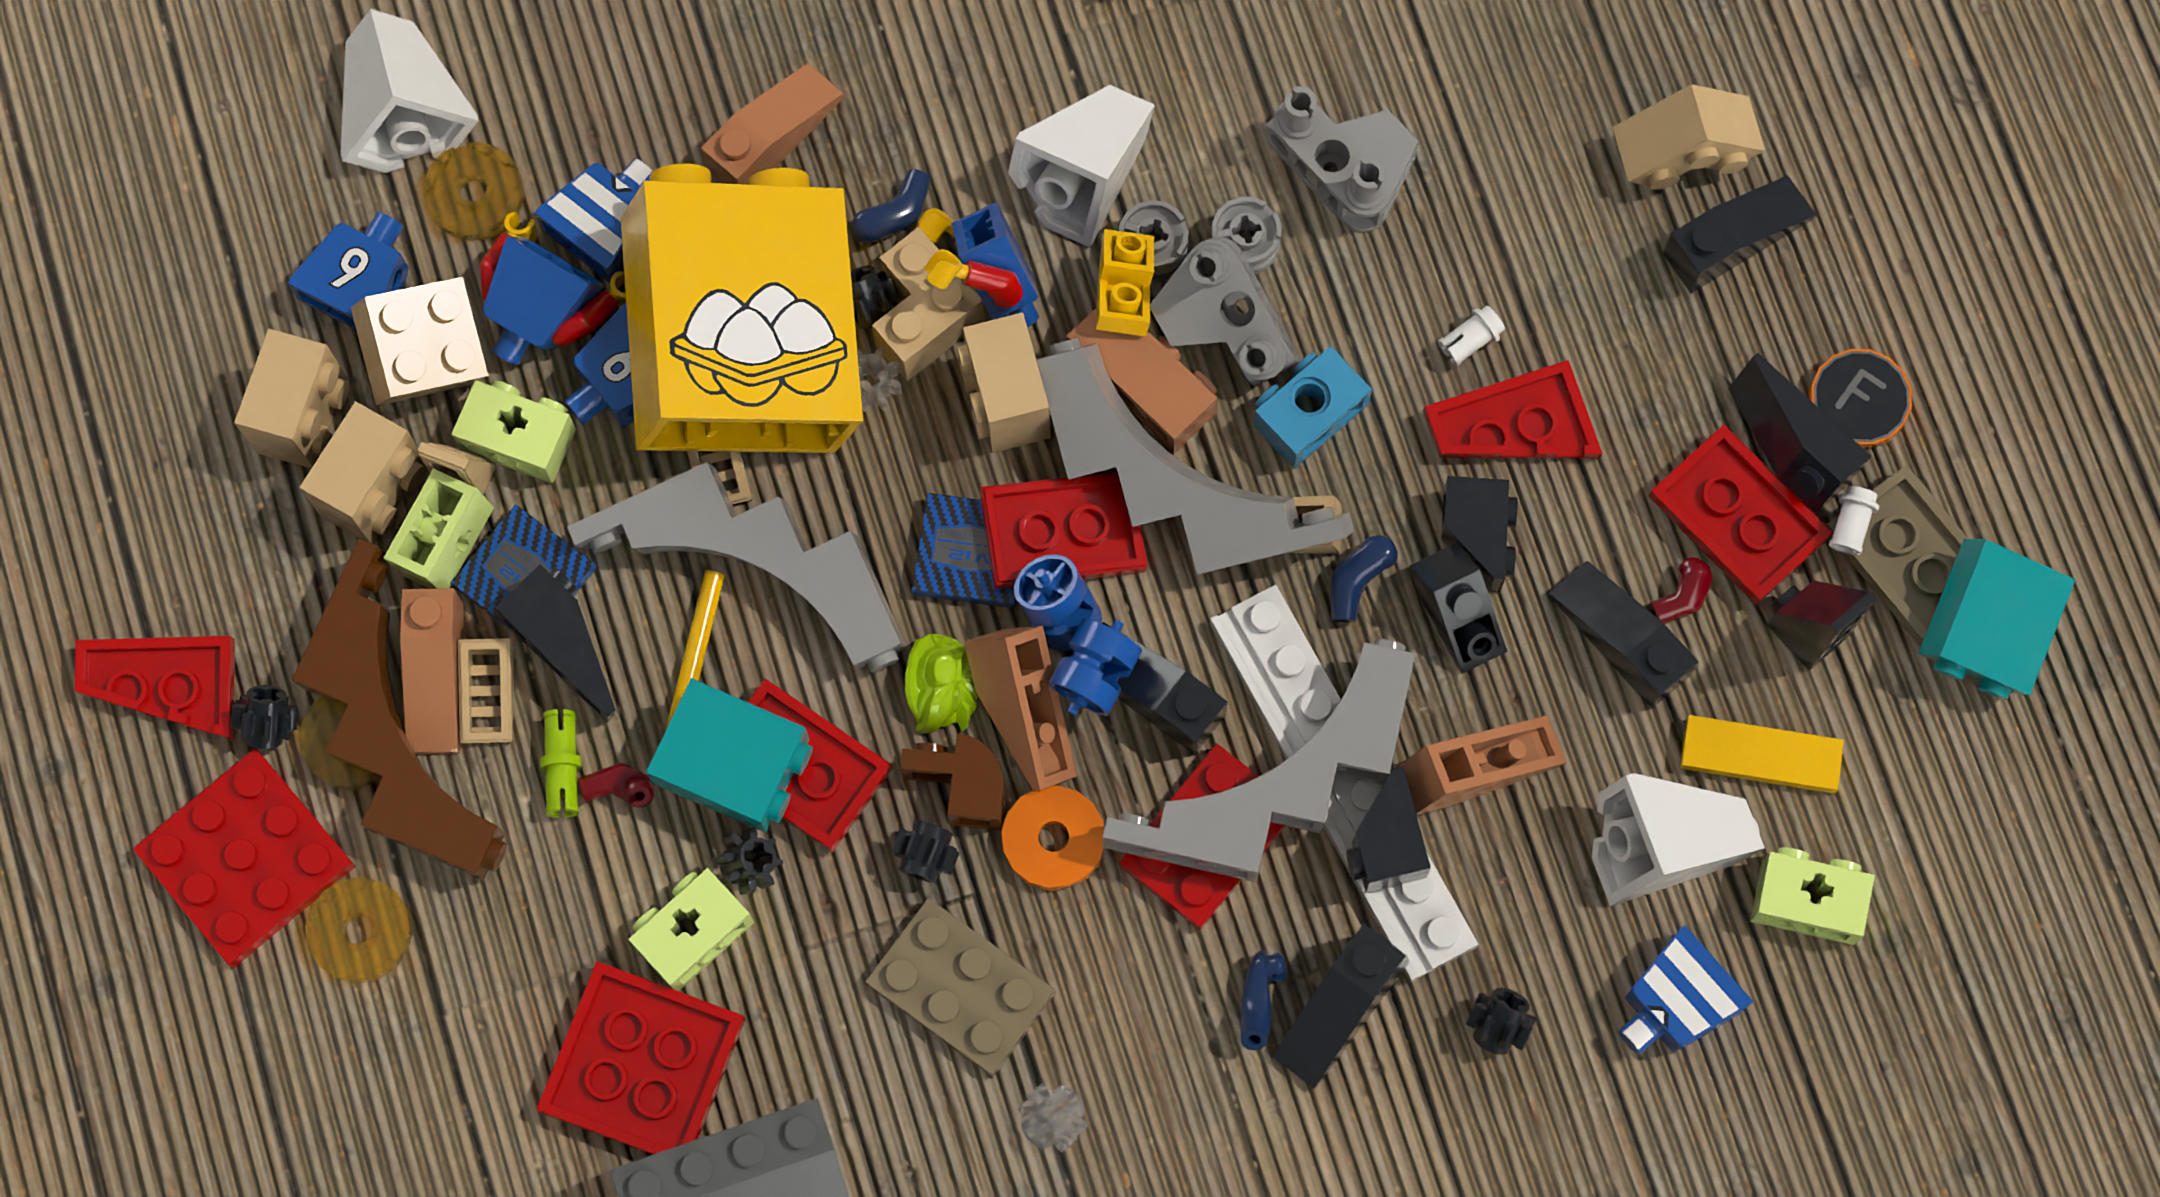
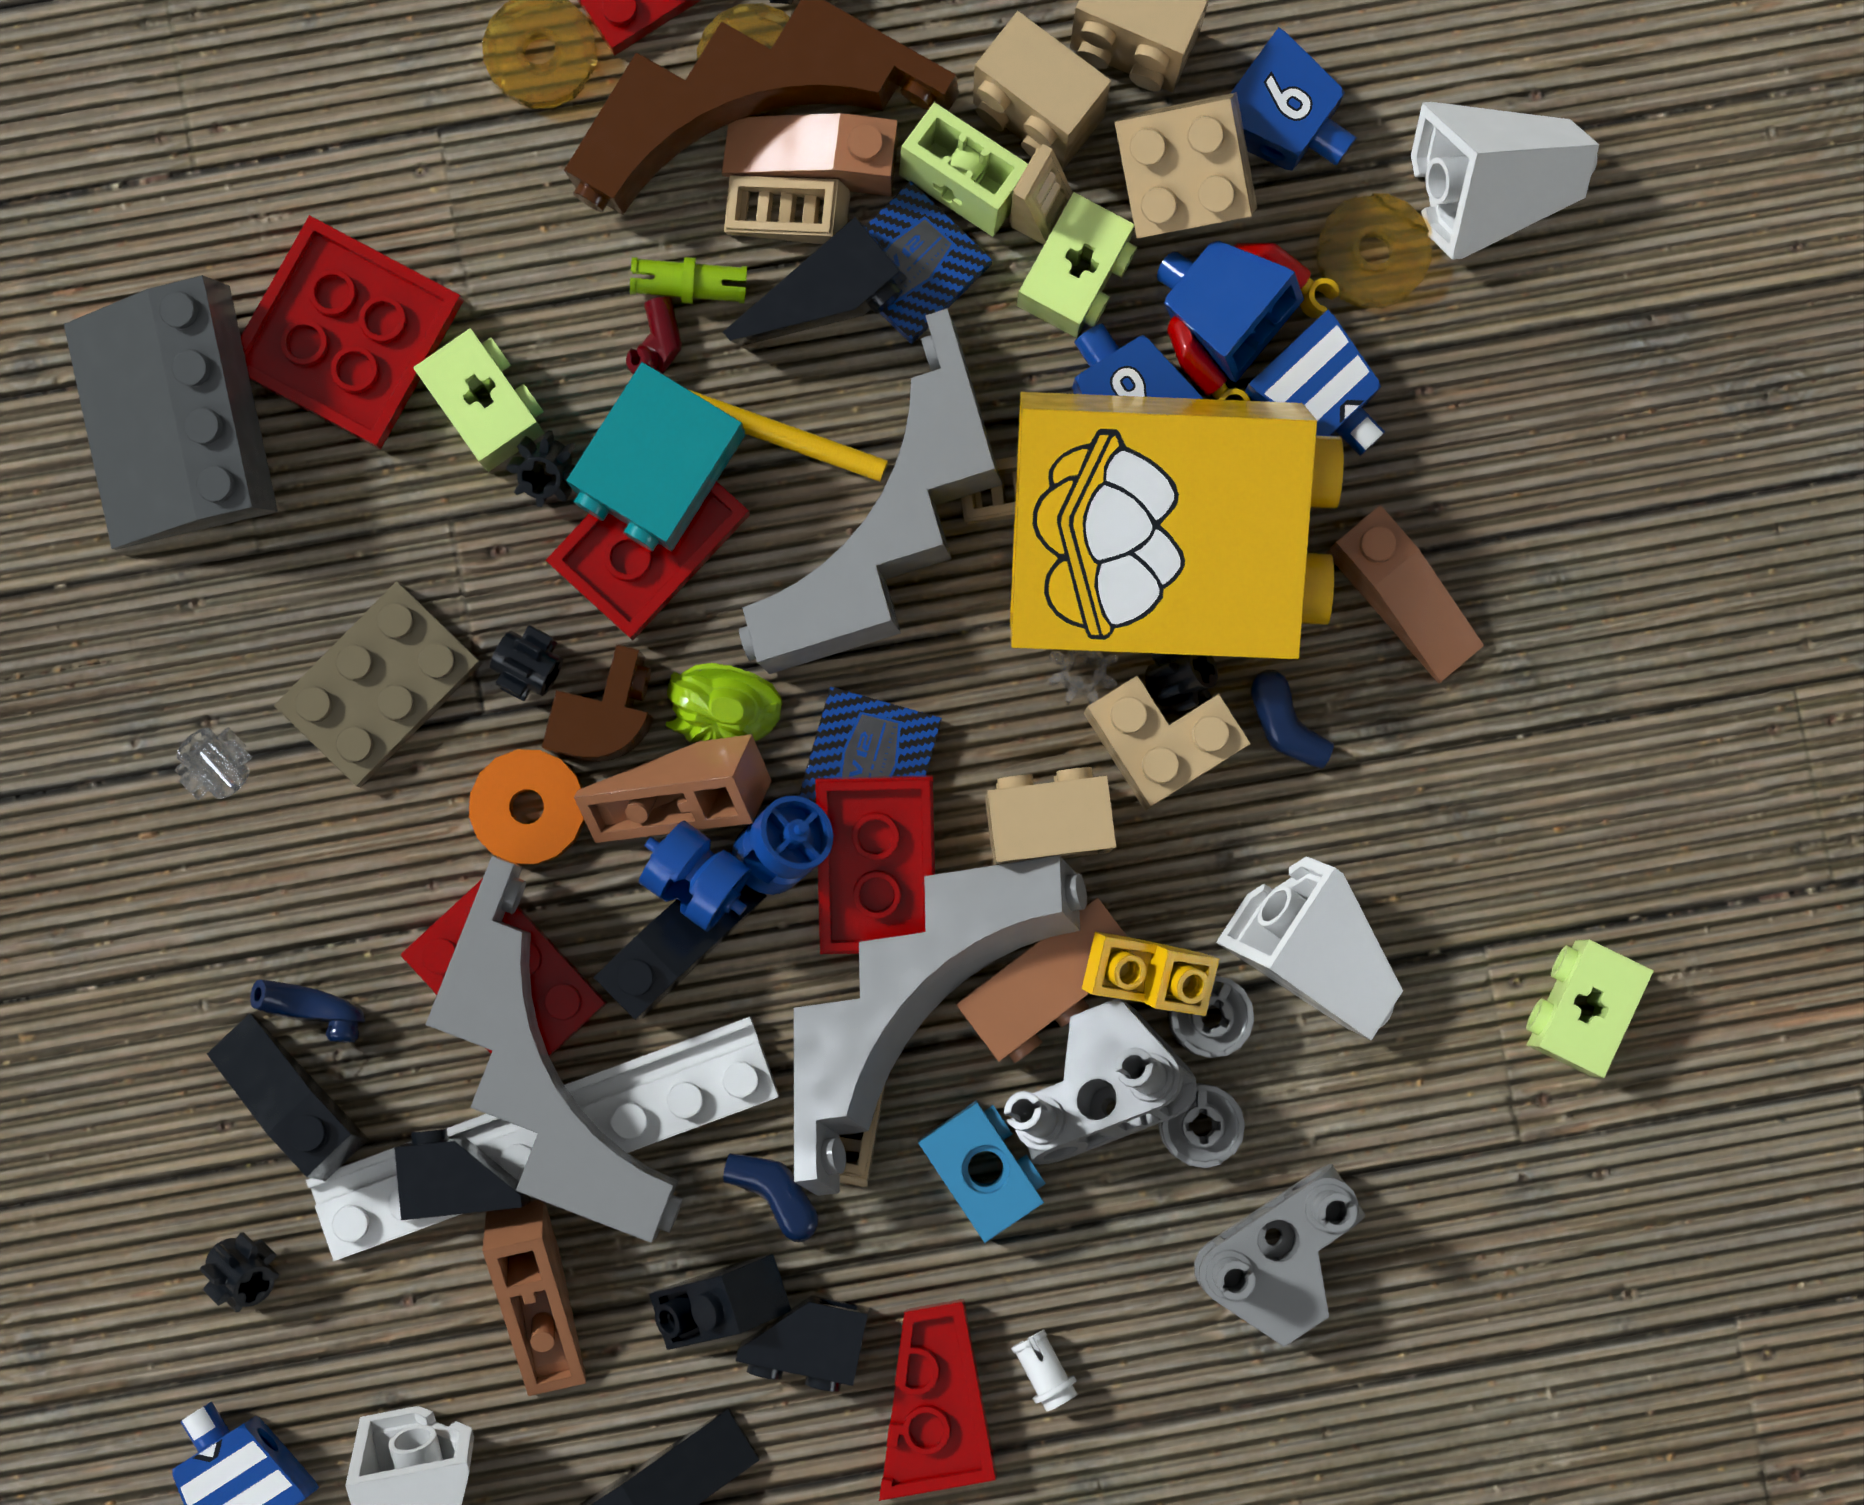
camera: 95 degrees right, 10 degrees up
(988, 258) = (1199, 820): torso -> none

